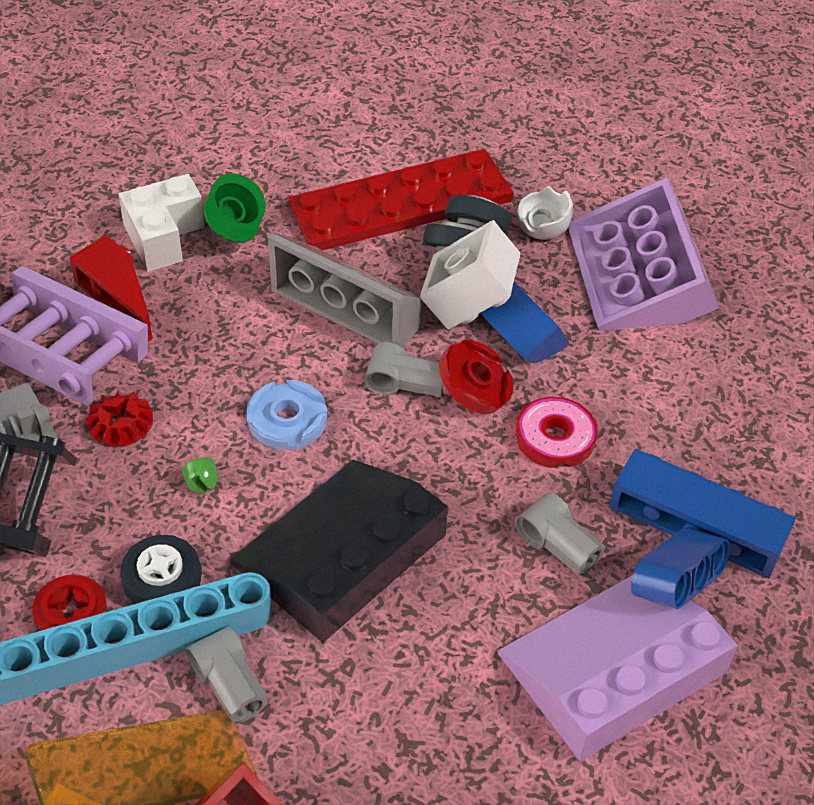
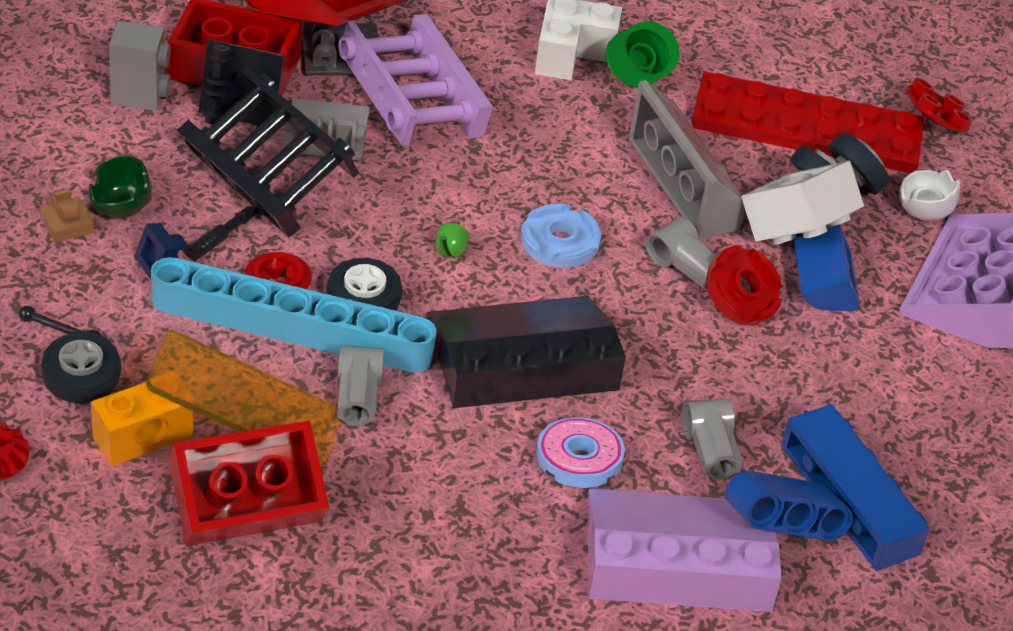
camera: 30 degrees right, 5 degrees down
(110, 278) = (495, 62): red slope -> none
(124, 430) = (418, 179): red gear -> none
(463, 598) = (583, 434): none -> tile
(490, 135) = (938, 109): none -> red dish
(552, 450) = (789, 348): tile -> none

